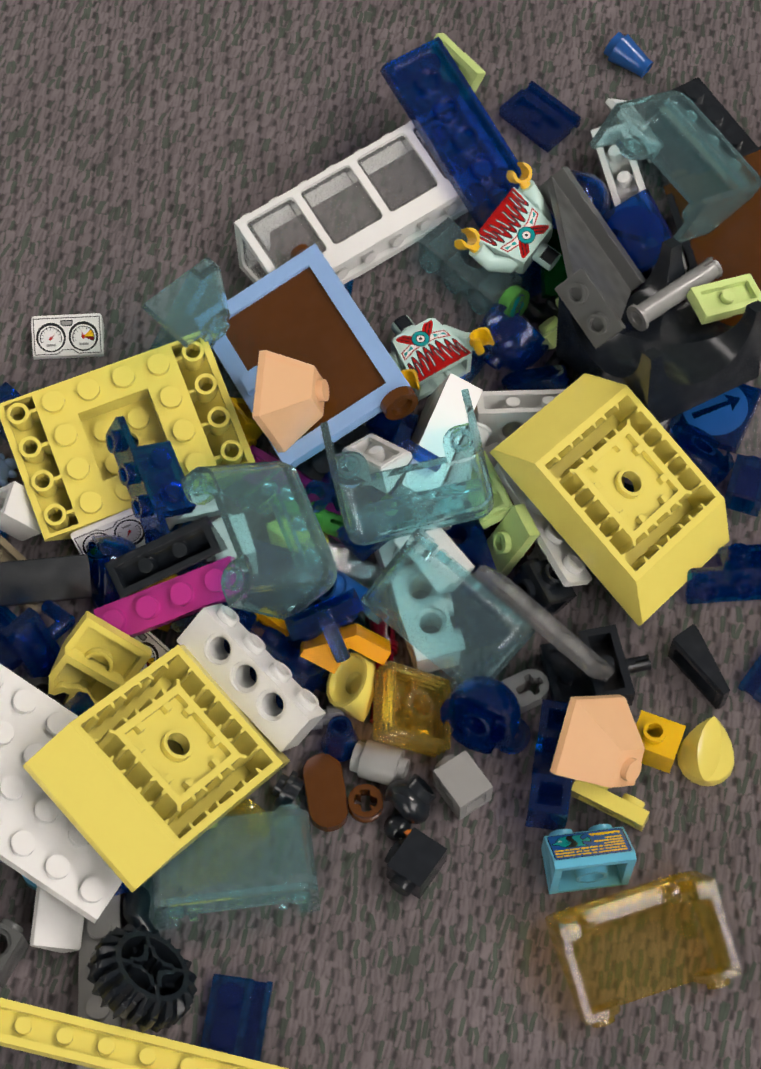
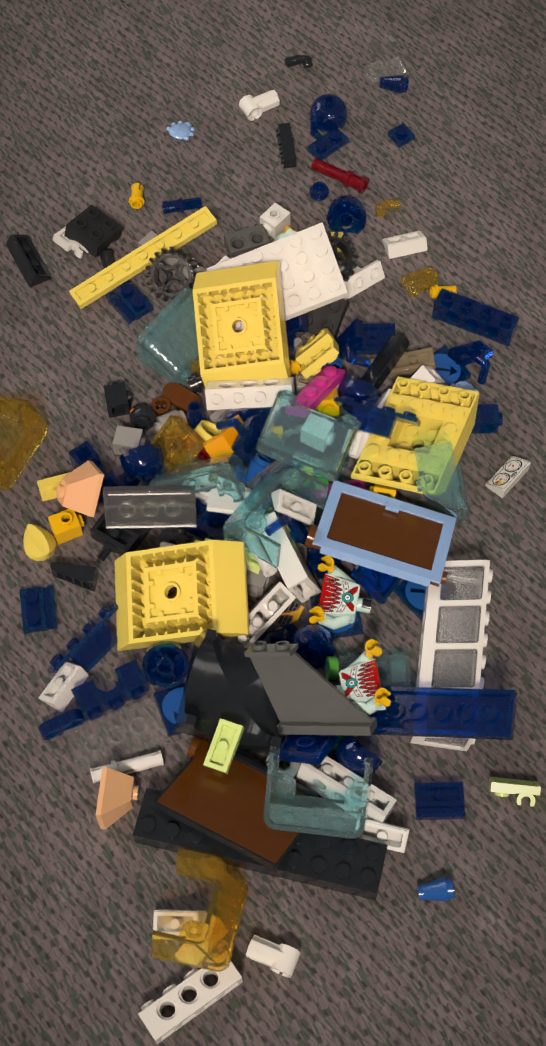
camera: 135 degrees right, 0 degrees up
(165, 556) = (330, 391): black slope -> none
(287, 398) = (360, 490): light nougat slope -> none
(587, 858) = (47, 451): medium azure slope -> none
(672, 294) = (251, 725): light grey pin -> none

